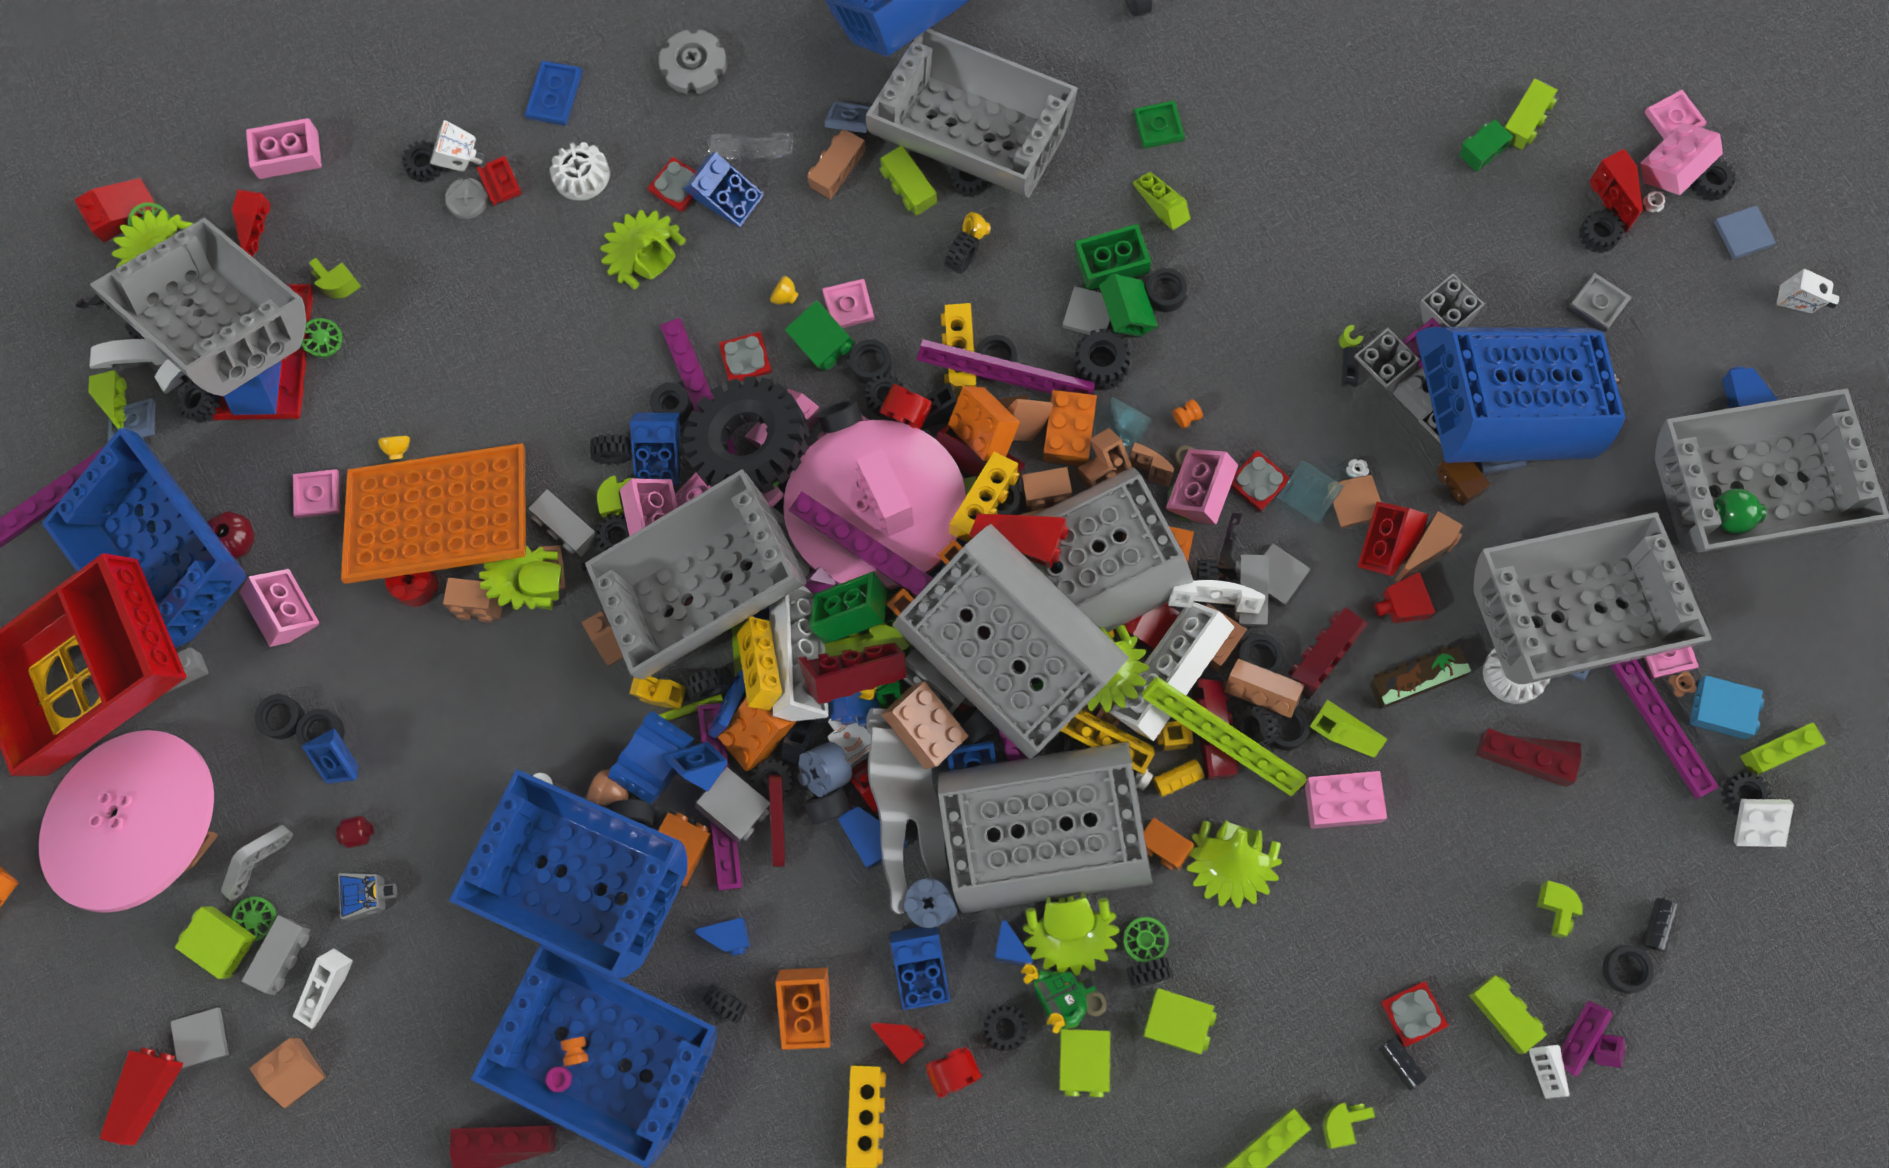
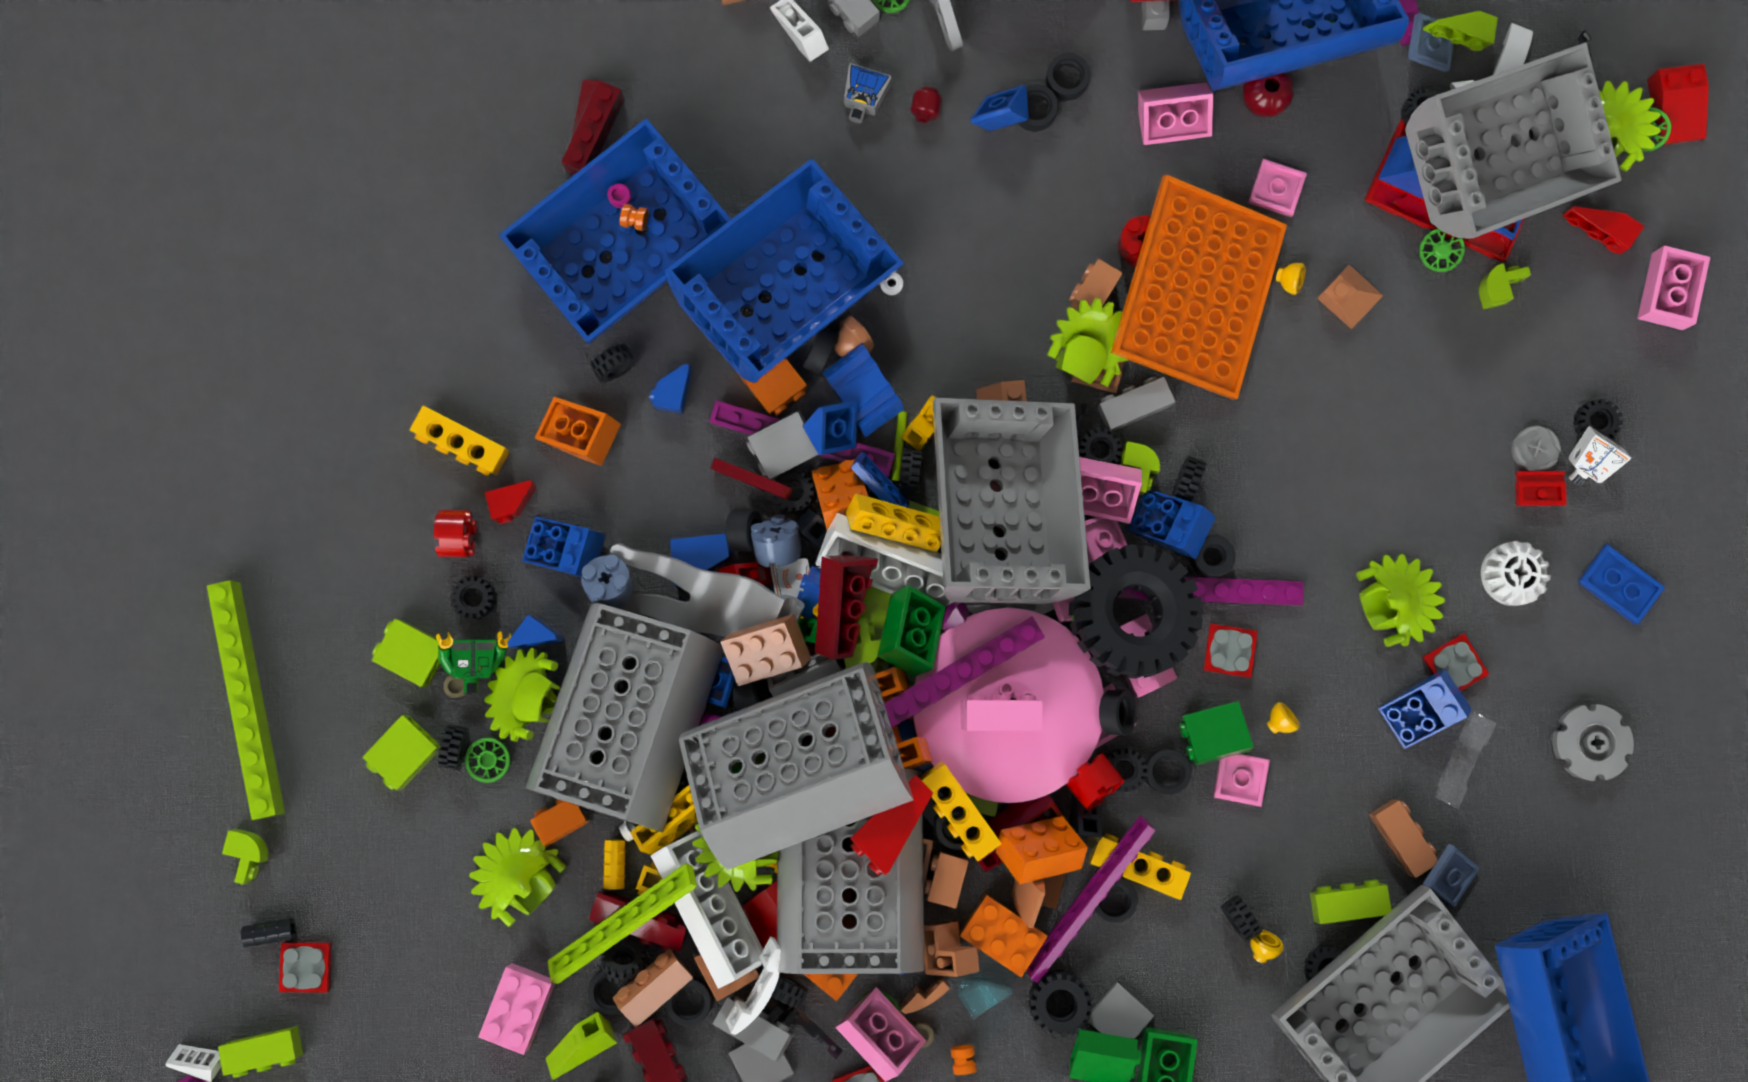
camera: 110 degrees right, 10 degrees up
(392, 394) = (1350, 296): none -> nougat slope

